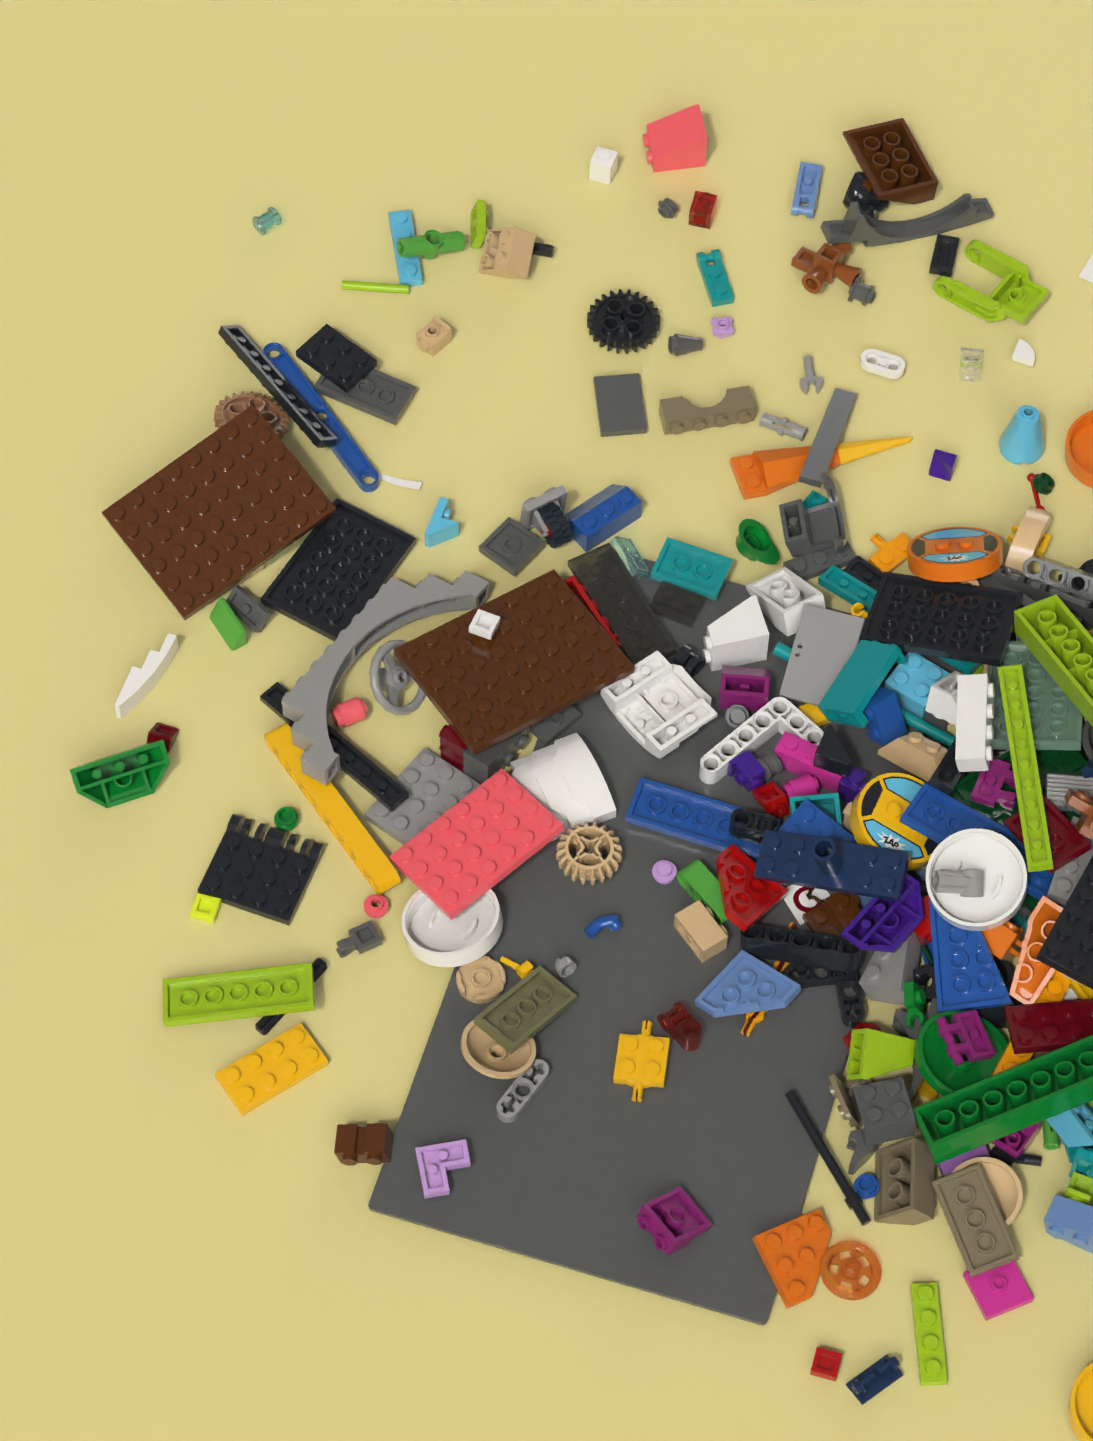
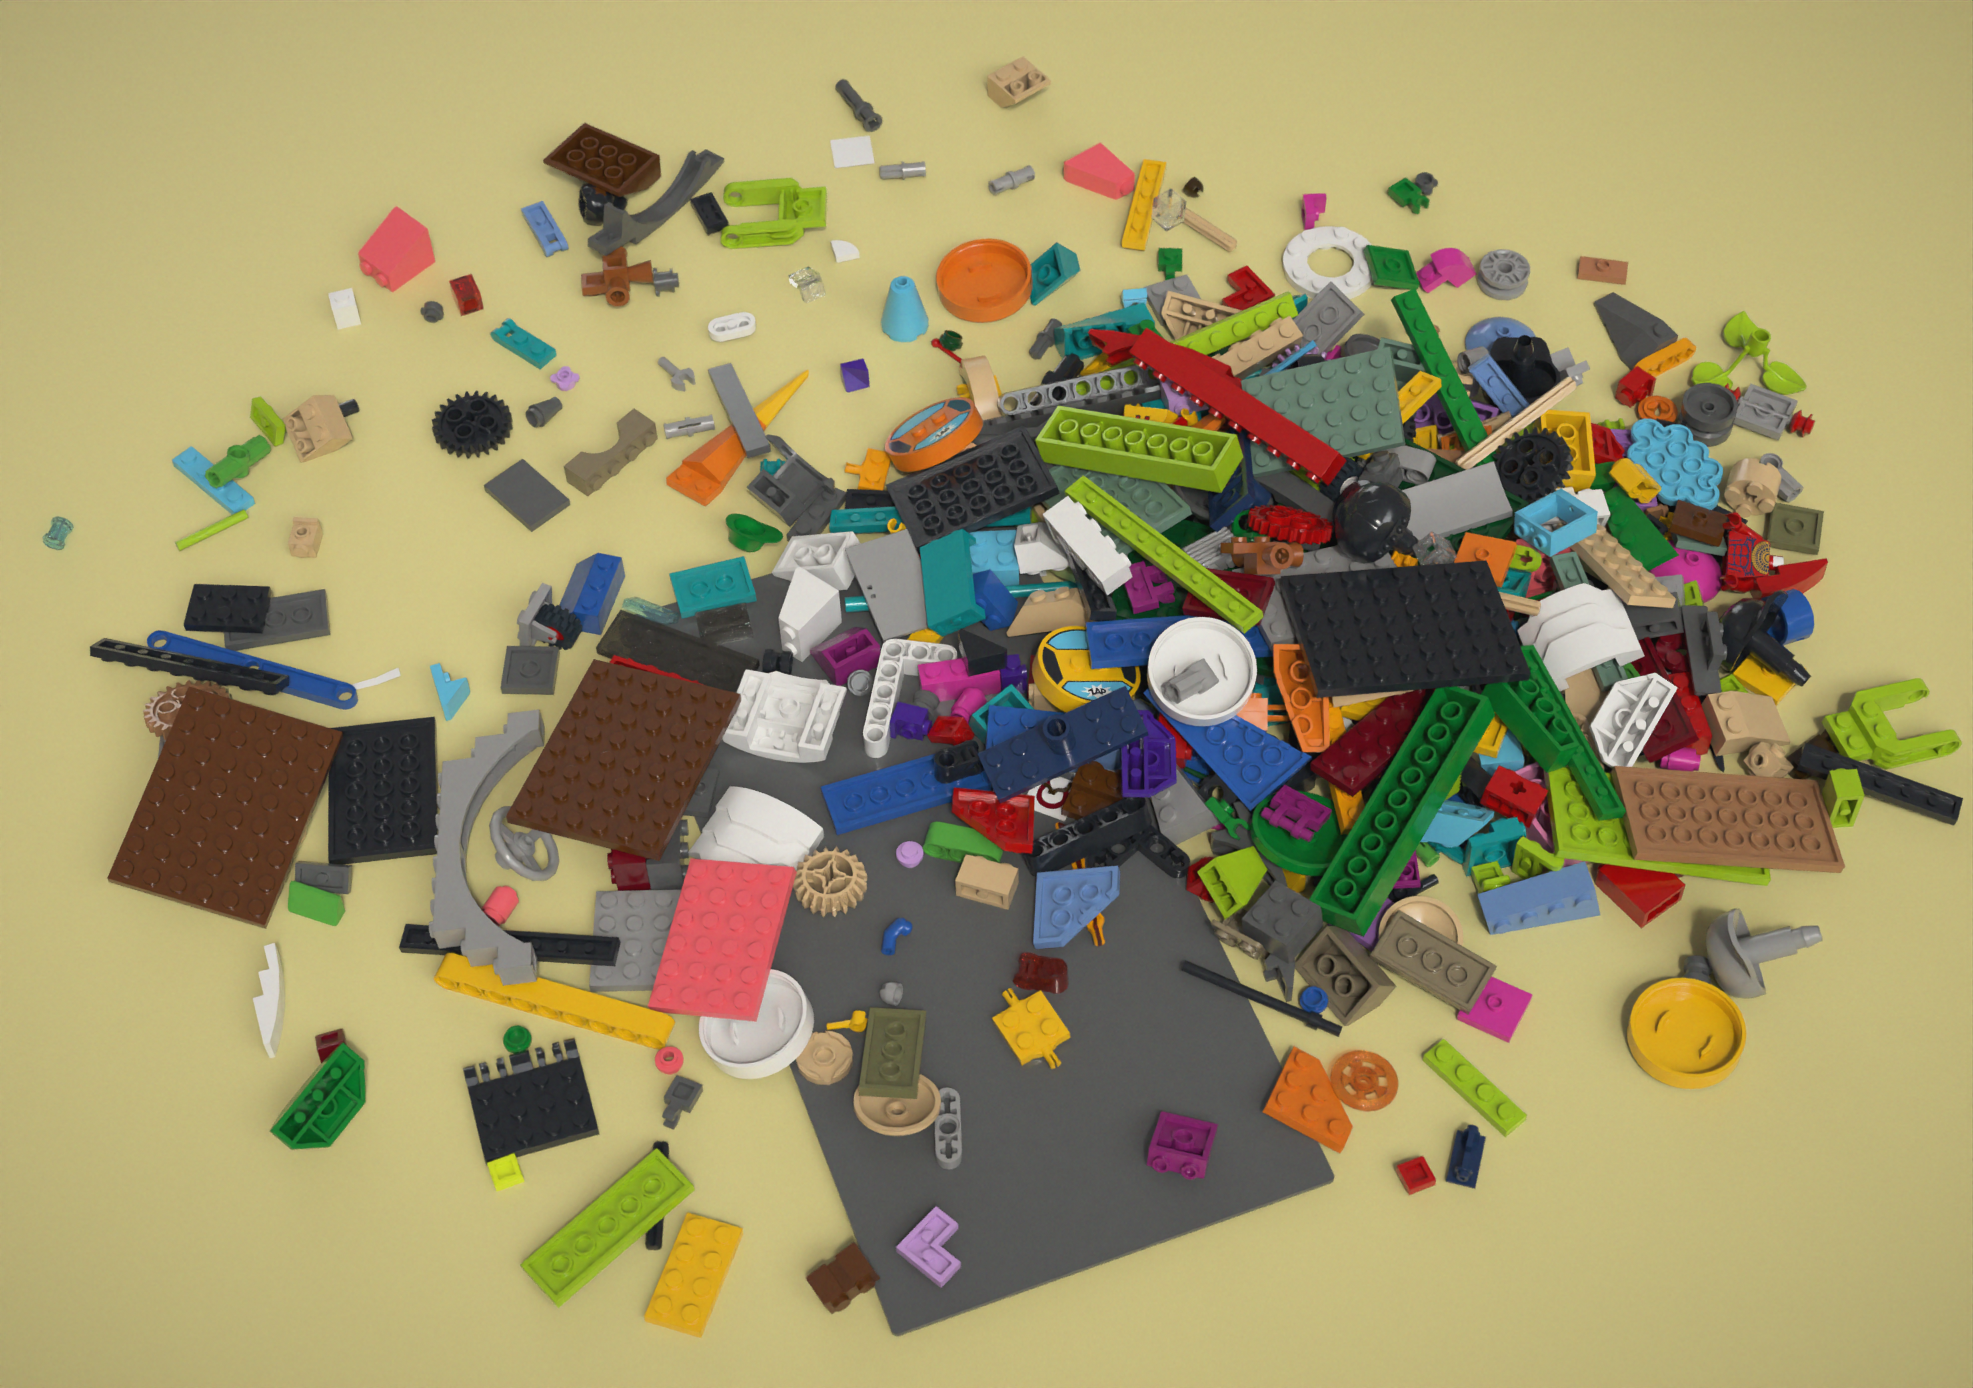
camera: 35 degrees left, 5 degrees down
(484, 624) = (575, 740): white plate -> none

